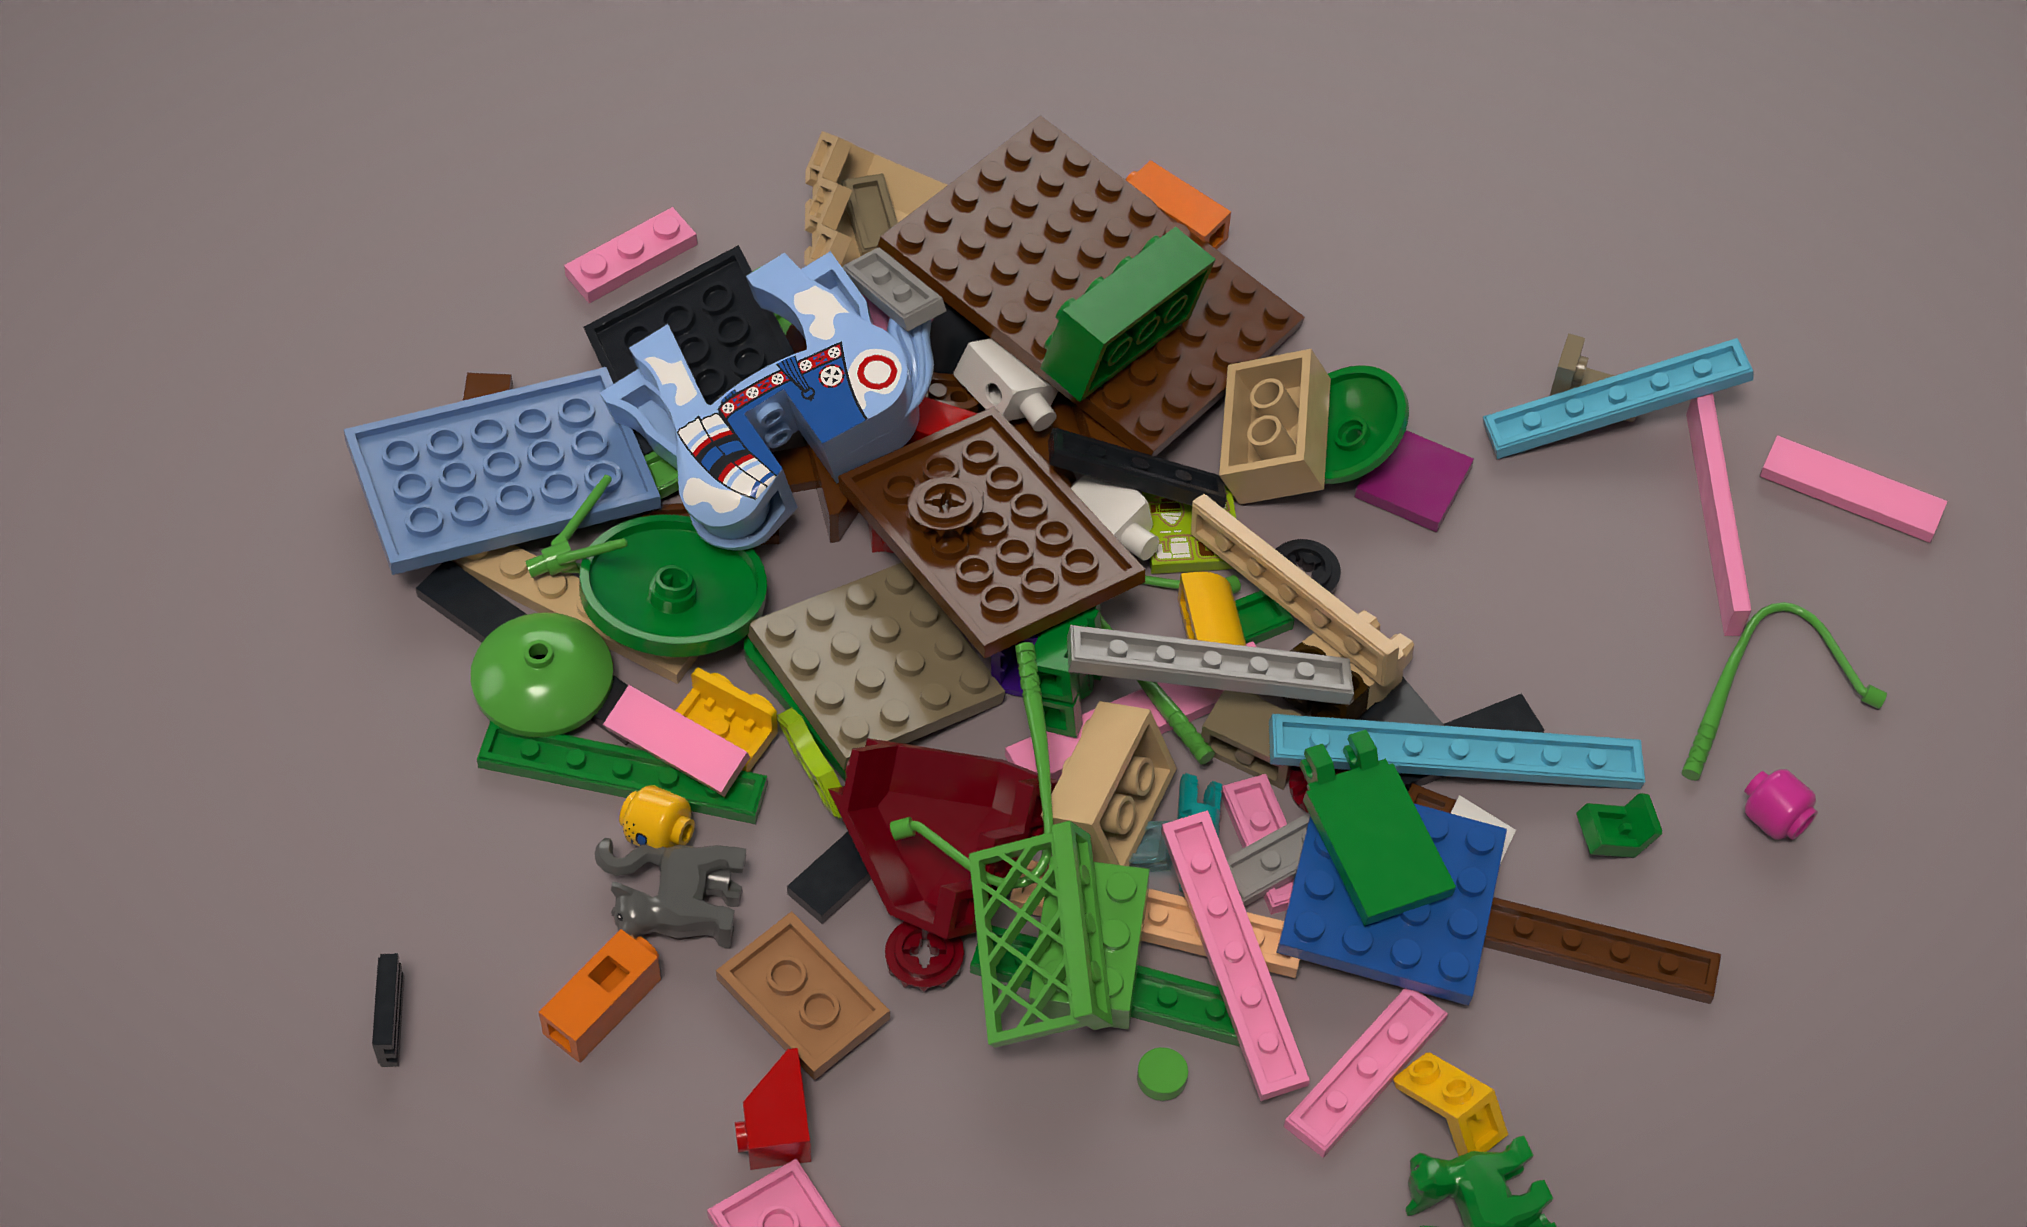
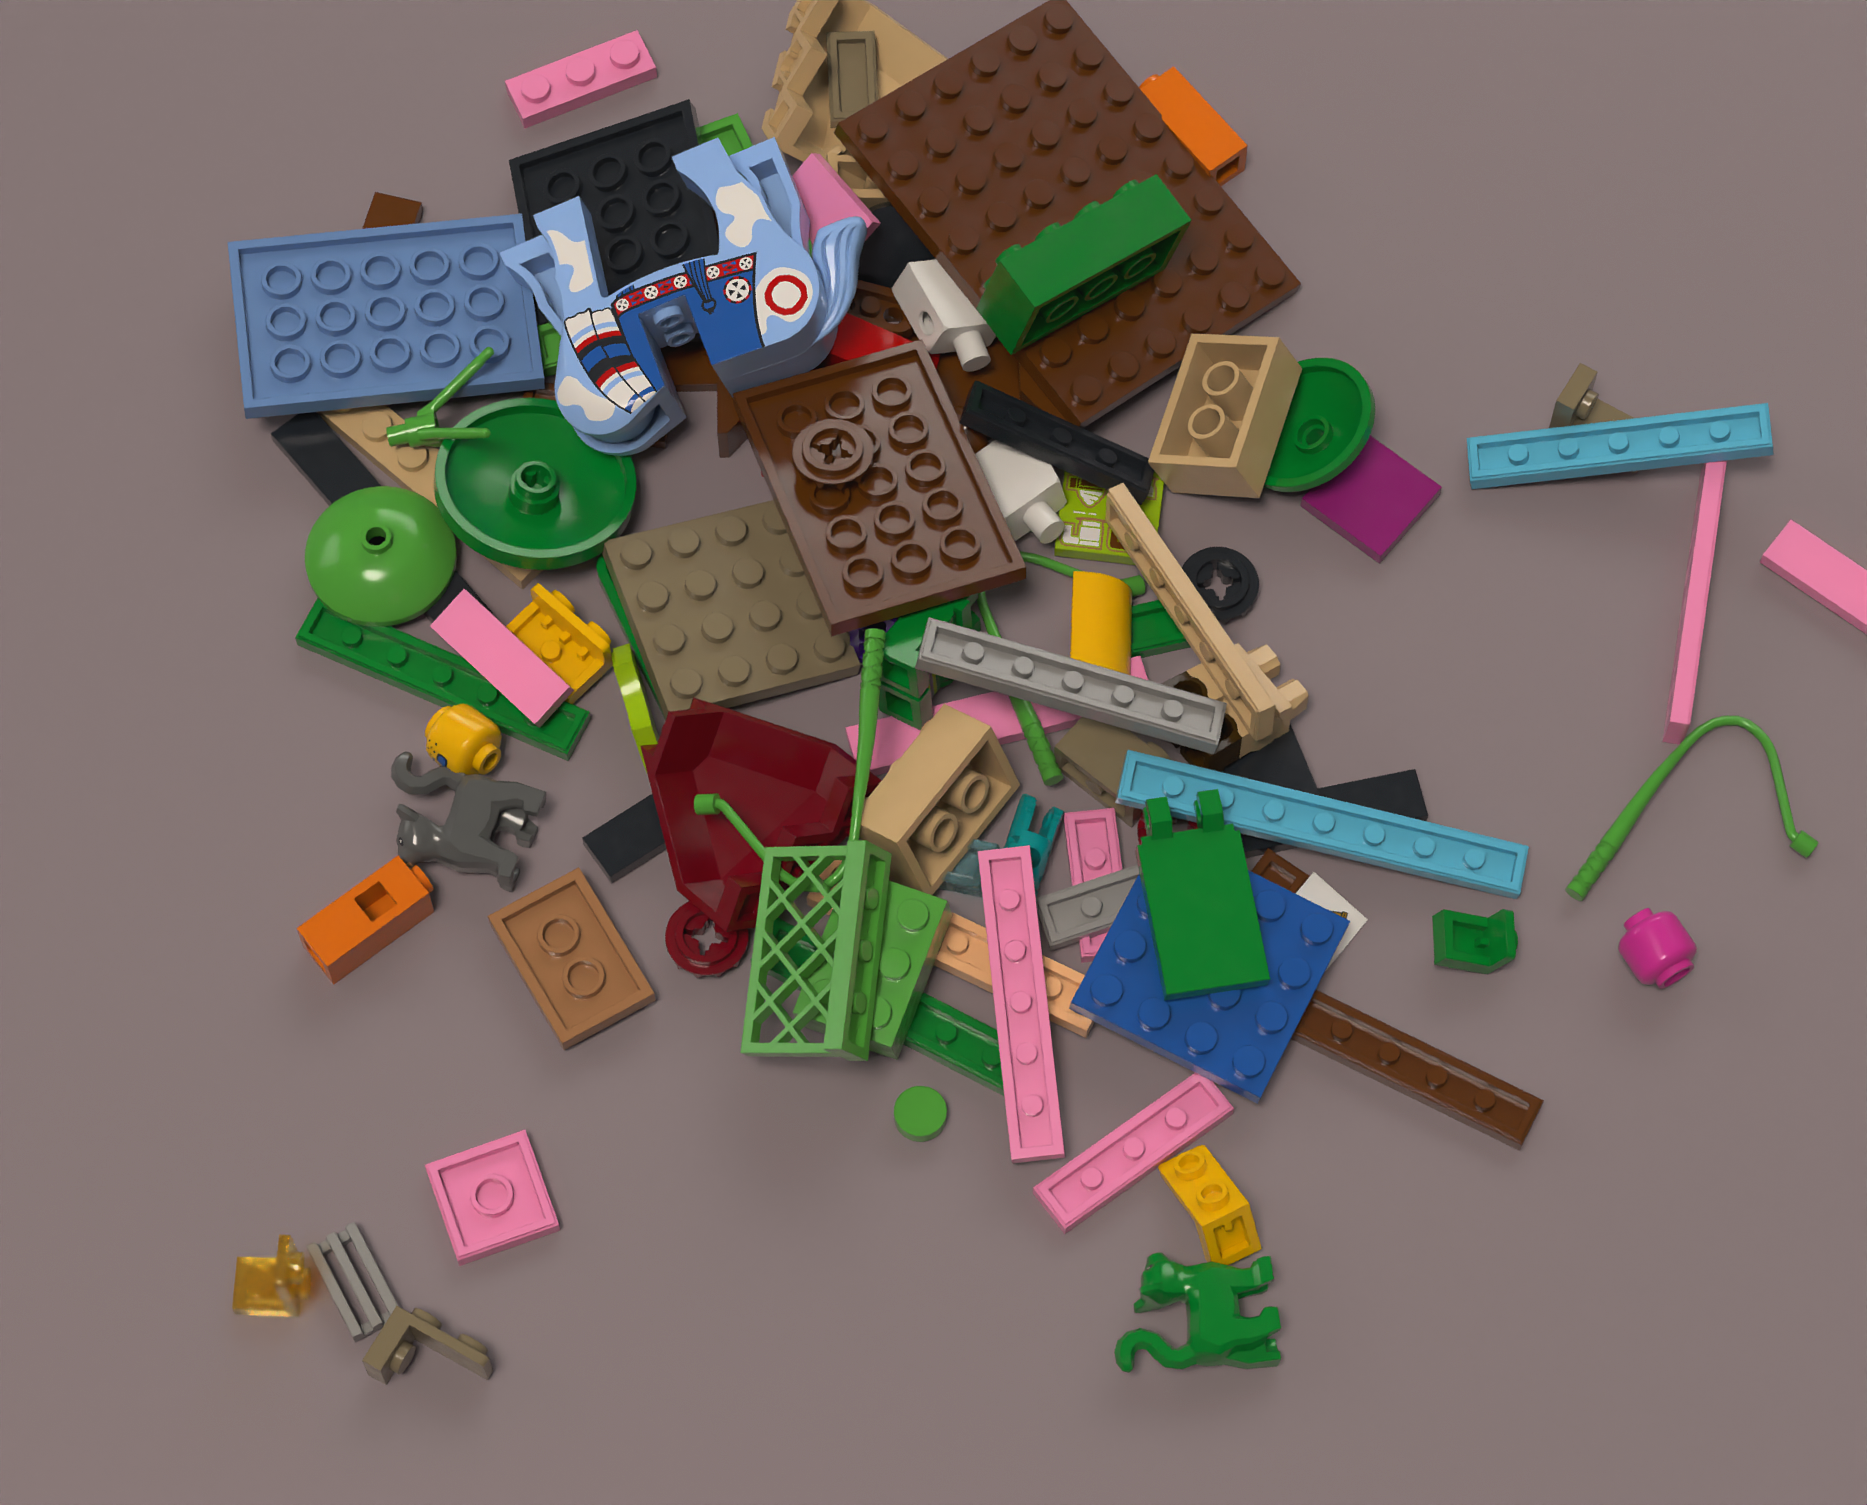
camera: 15 degrees right, 10 degrees up
(388, 1010) = (151, 894): black tile -> none
(776, 1117) = (514, 1082): red slope -> none
(894, 289) = (831, 195): light grey tile -> none

